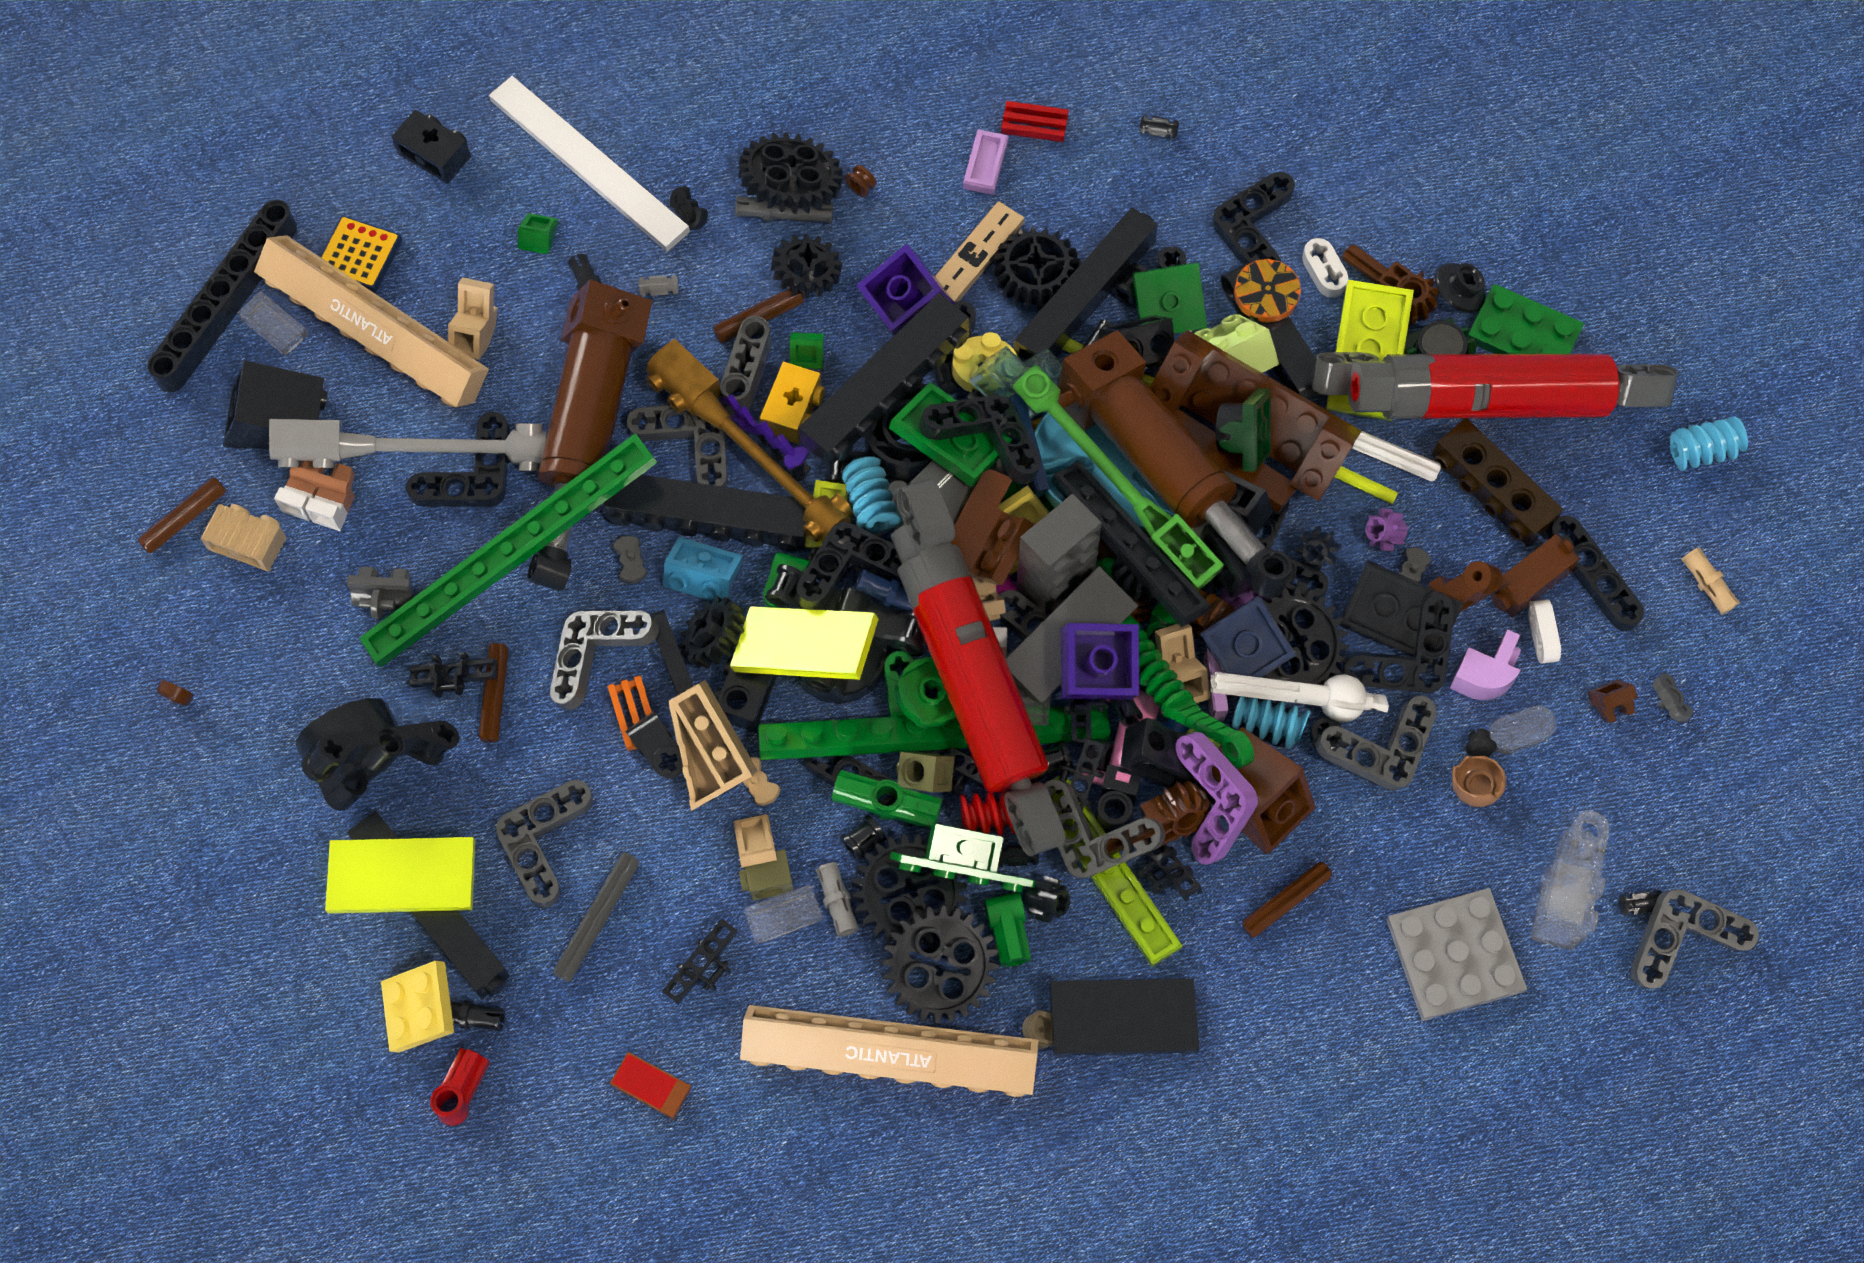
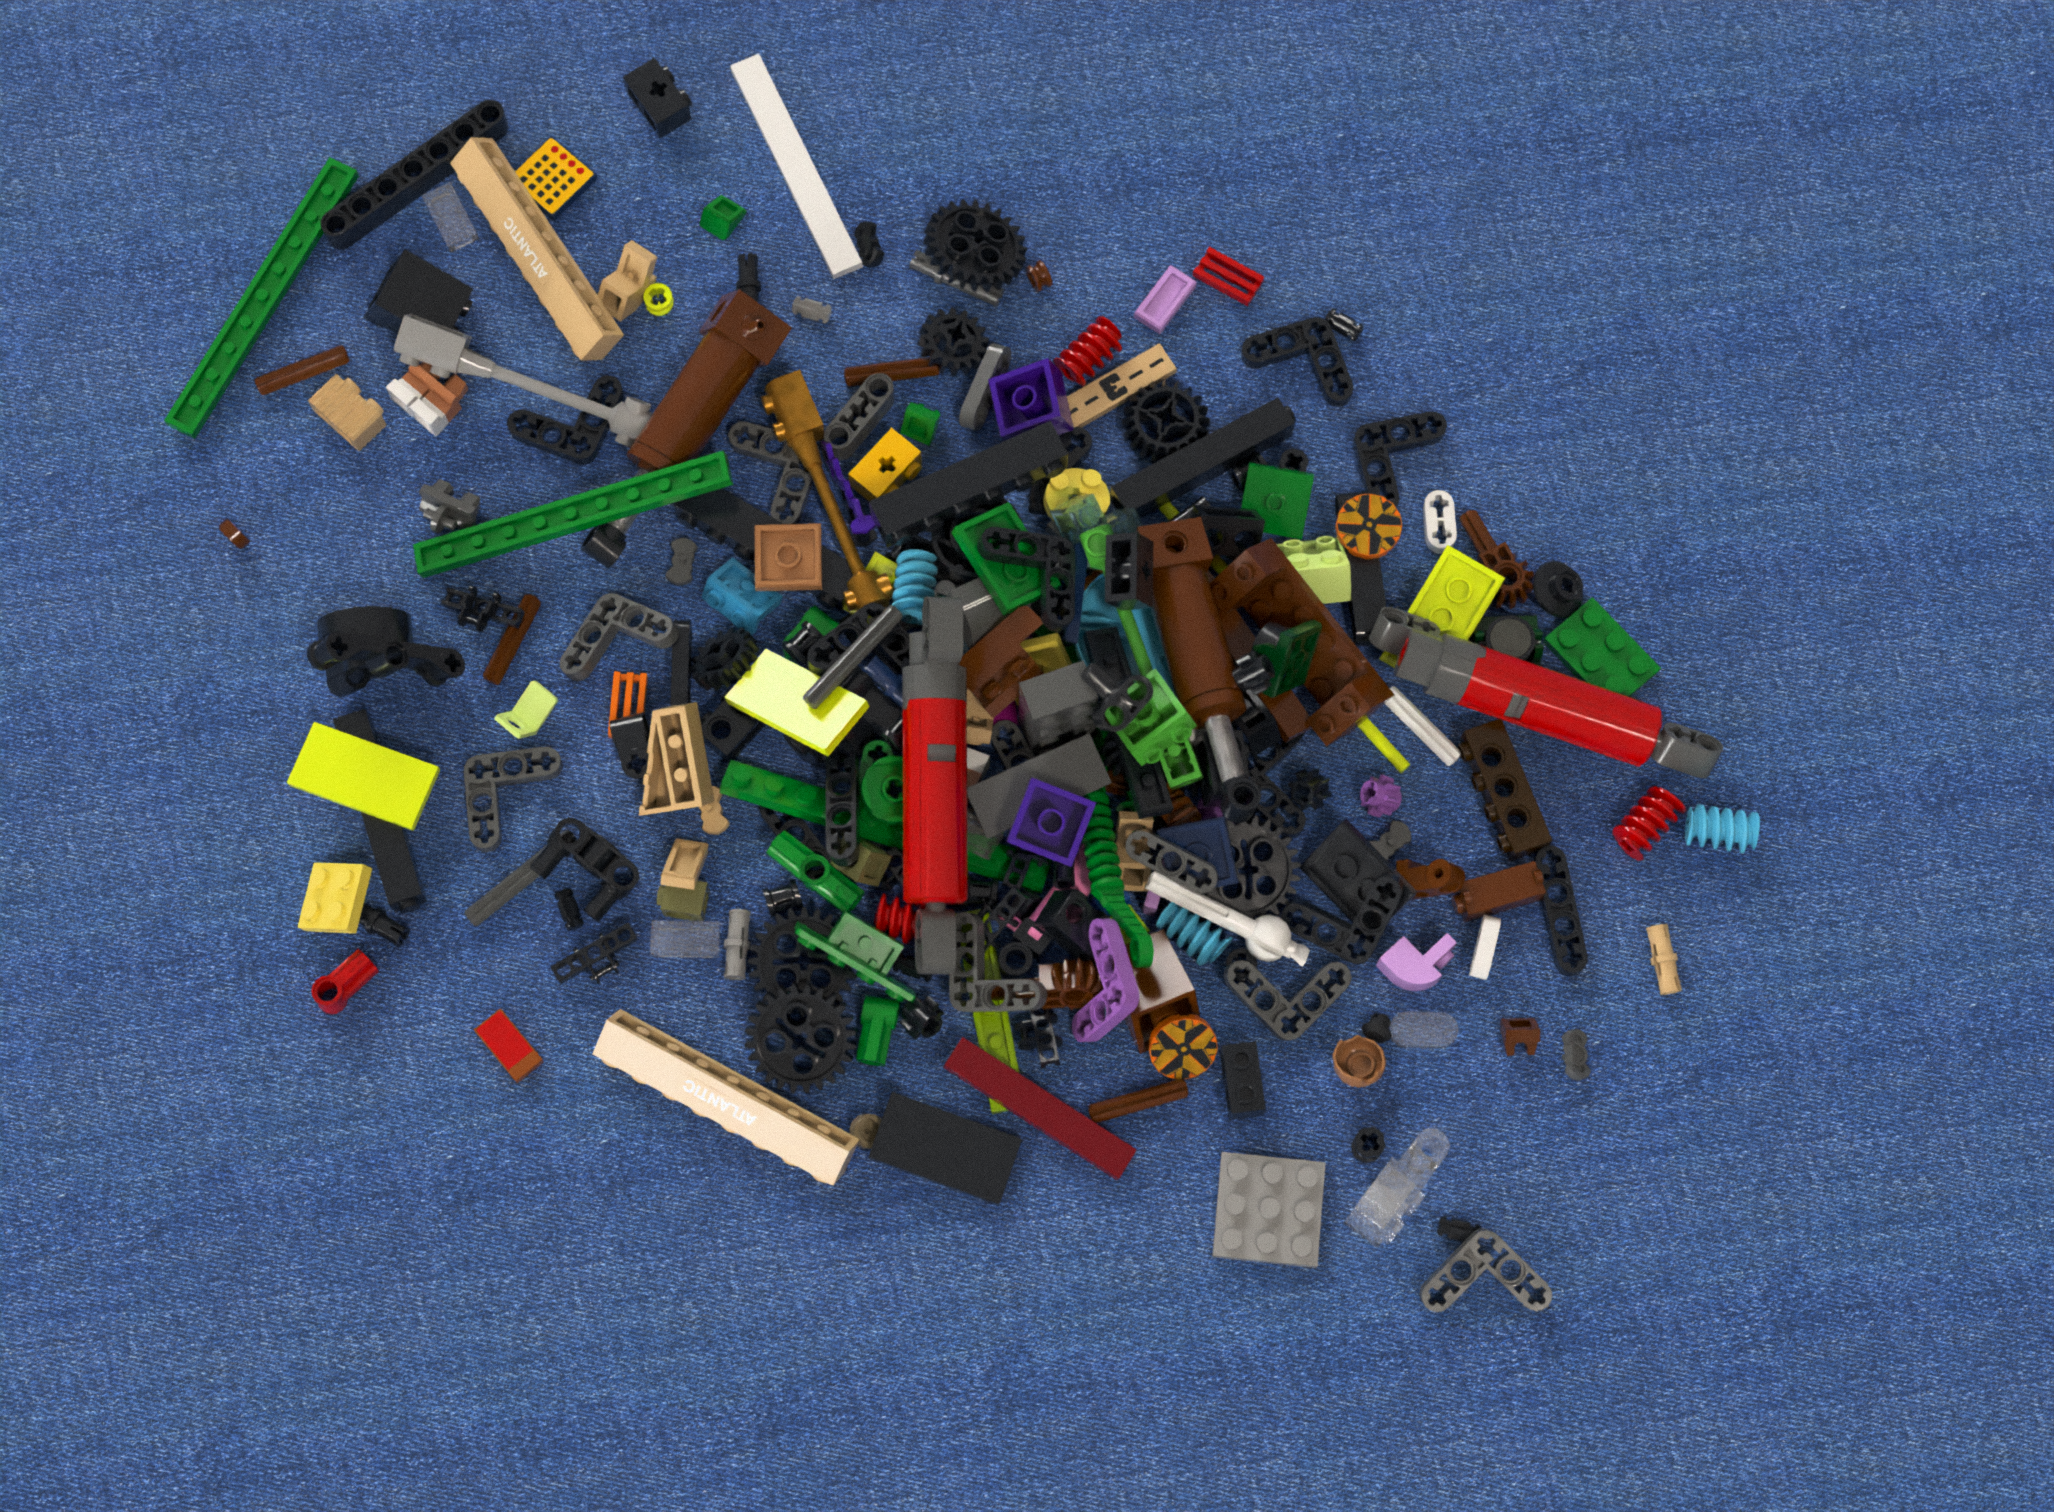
camera: 20 degrees right, 5 degrees up
(114, 466) = (260, 300): none -> green plate
(511, 336) = (660, 309): none -> neon yellow bush
(539, 752) = (529, 711): none -> yellowish green bracket
(656, 929) = (569, 909): none -> black piece
(665, 867) = (596, 857): none -> black piece
(735, 514) = (788, 557): none -> medium nougat tile
(842, 579) = (852, 656): none -> dark grey axle
(852, 300) = (979, 397): none -> dark grey beam
(884, 724) = (842, 803): none -> black beam
(939, 228) = (1089, 350): none -> red piece
(1077, 398) = (1129, 571): none -> black brick
(1120, 516) = (1116, 695): none -> black beam
(1133, 156) = (1304, 345): none -> black beam
(1154, 527) = (1157, 724): none -> bright green plate
(1198, 942) = (1039, 1108): none -> dark red tile
(1231, 451) = (1253, 672): none -> black gear
(1253, 651) = (1190, 881): none -> dark grey beam
(1309, 829) = (1182, 1046): none -> tile
(1378, 841) = (1242, 1080): none -> black brick
(1512, 858) = (1372, 1154): none -> black bush
(1638, 462) = (1645, 820): none -> red piece

